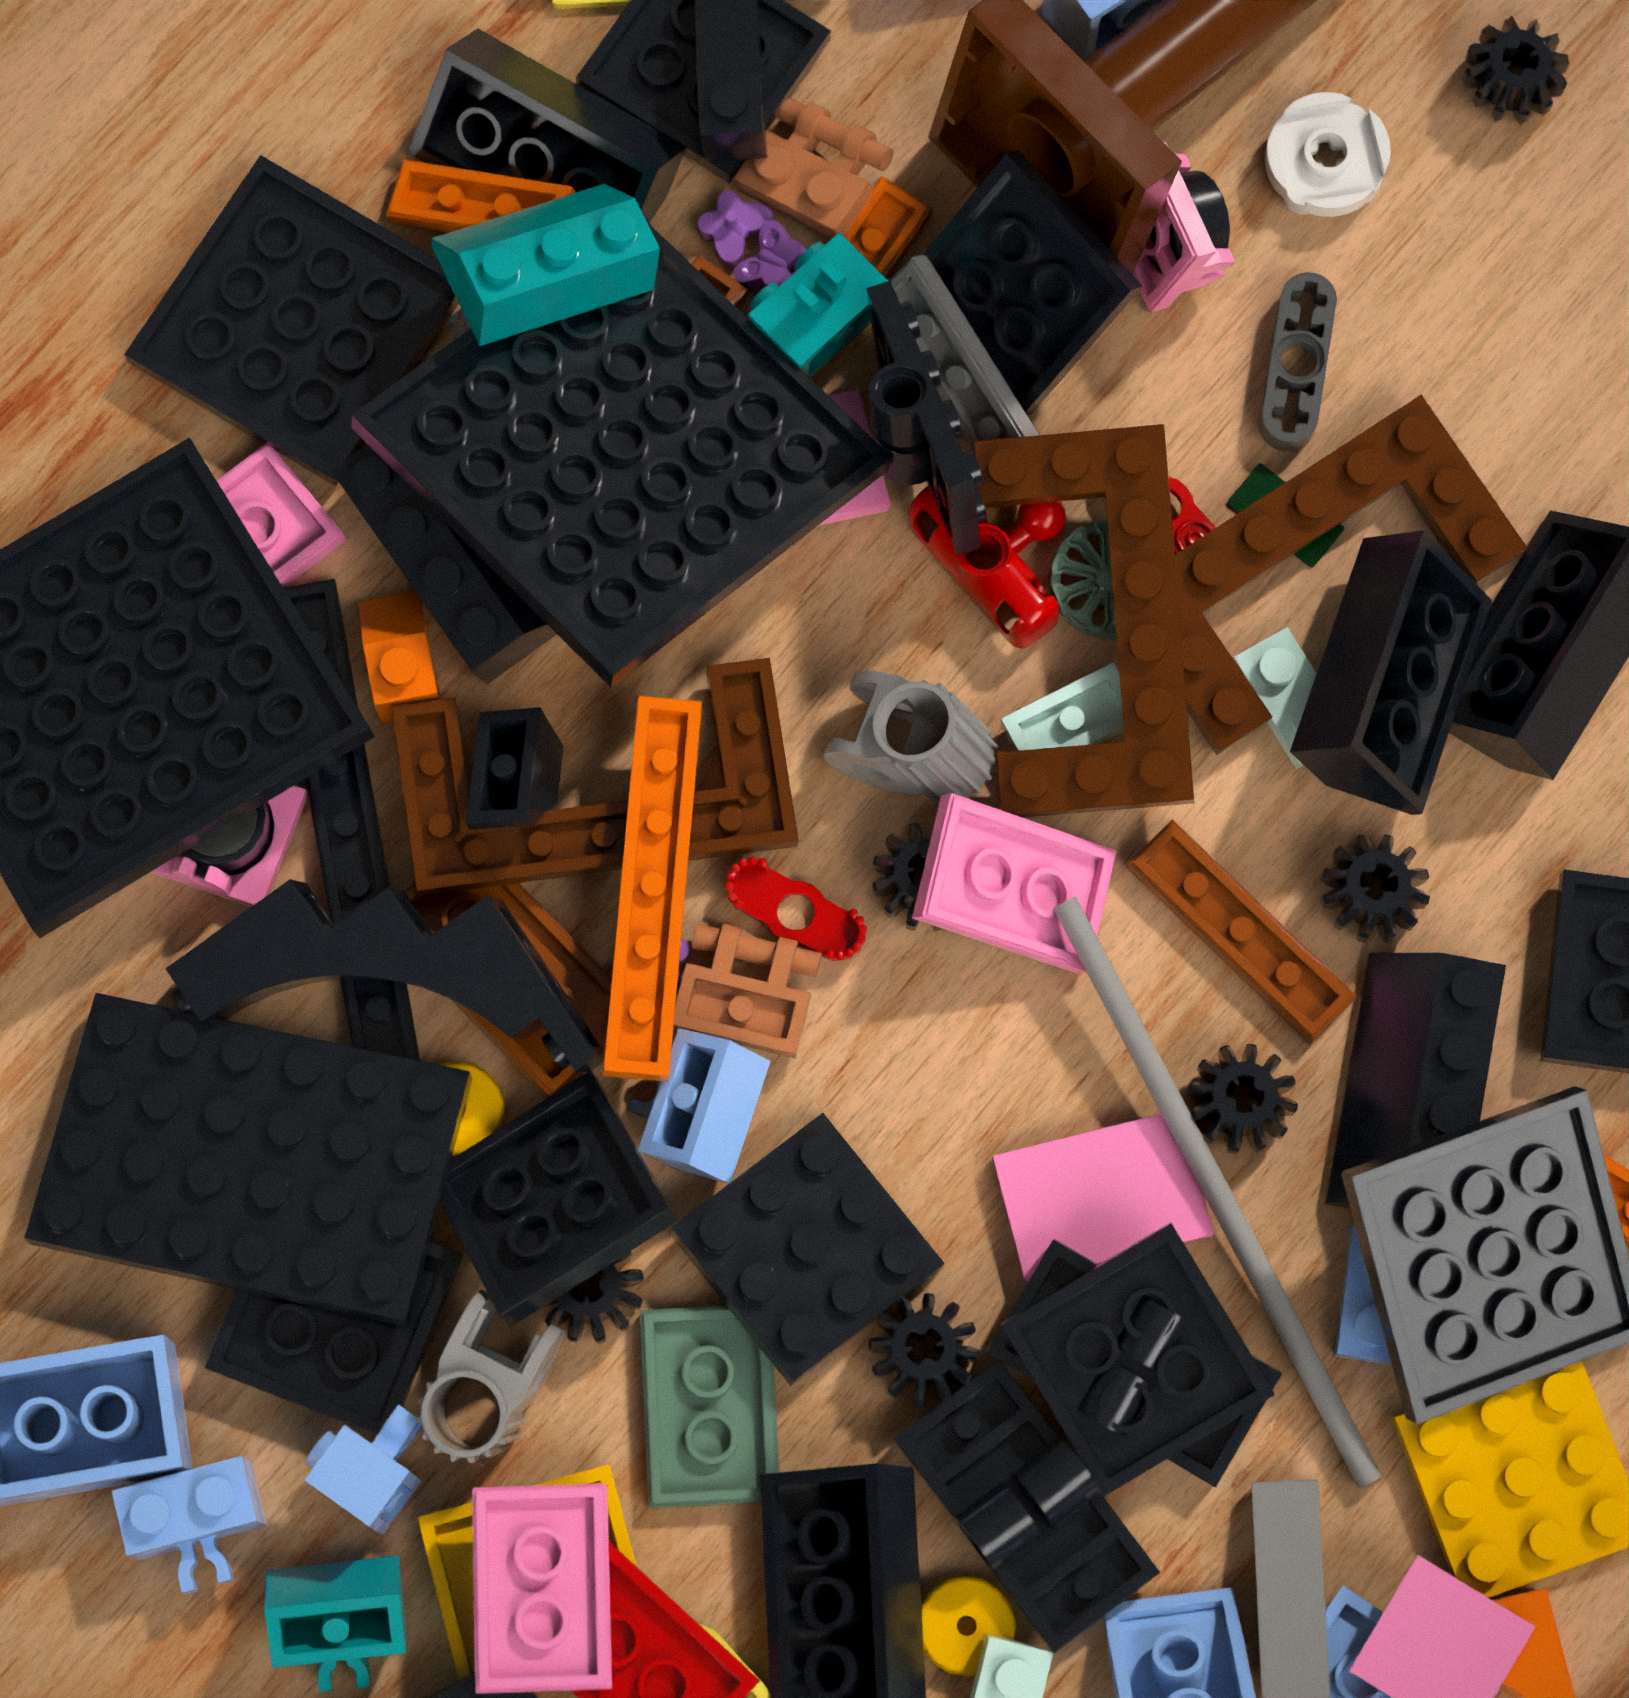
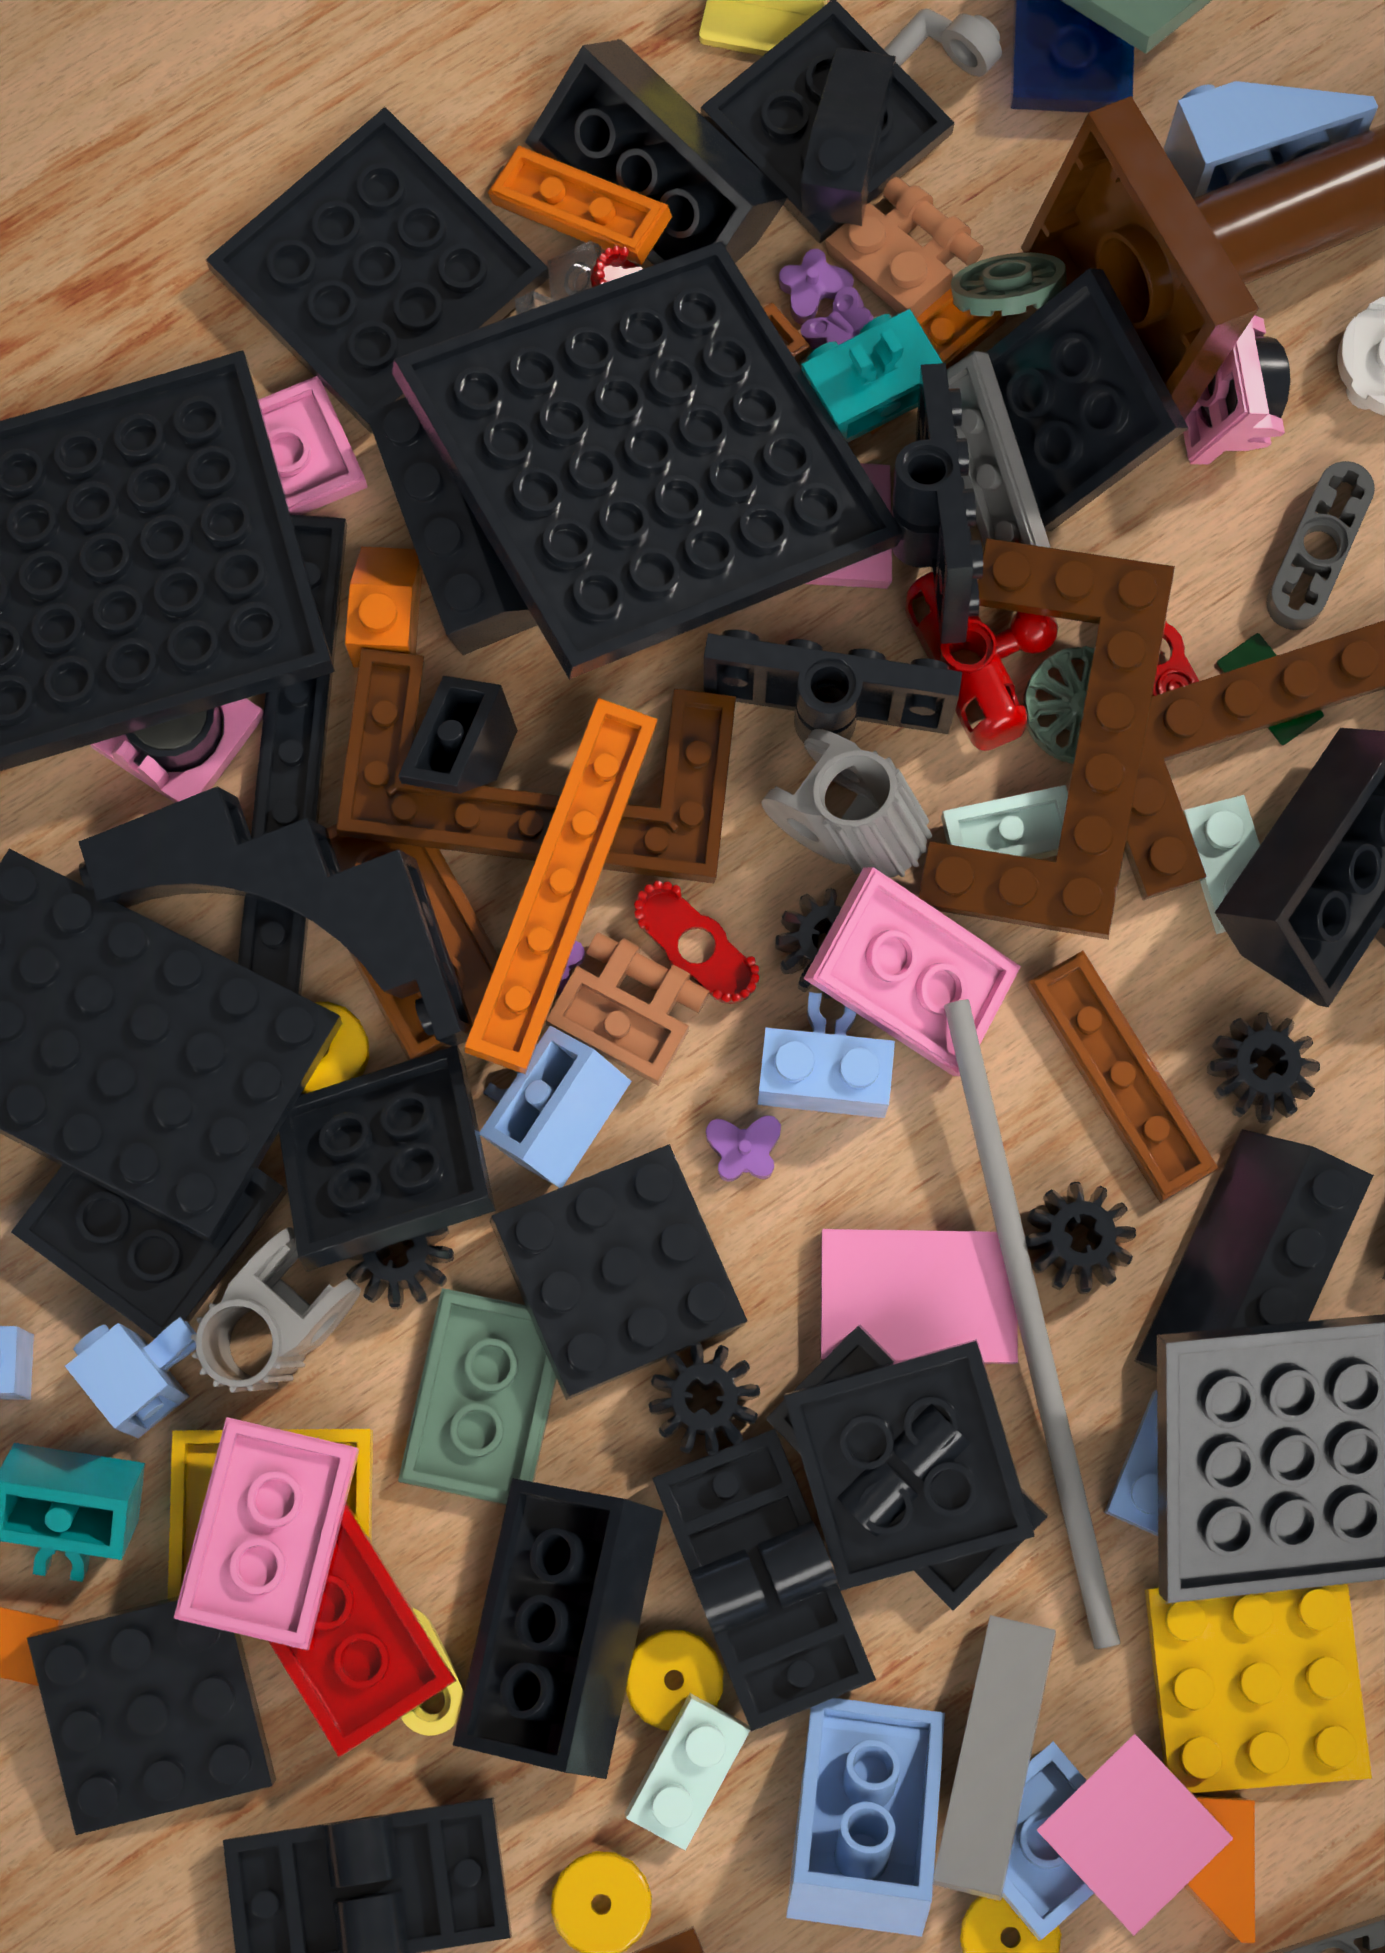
camera: 15 degrees right, 0 degrees up
(549, 262) = (624, 267): teal slope -> none
(887, 617) = (855, 684): none -> black plate
(895, 1098) = (744, 1148): none -> medium lavender piece
(928, 181) = (1008, 283): none -> sand green wheel
(955, 1000) = (826, 1069): none -> light blue brick

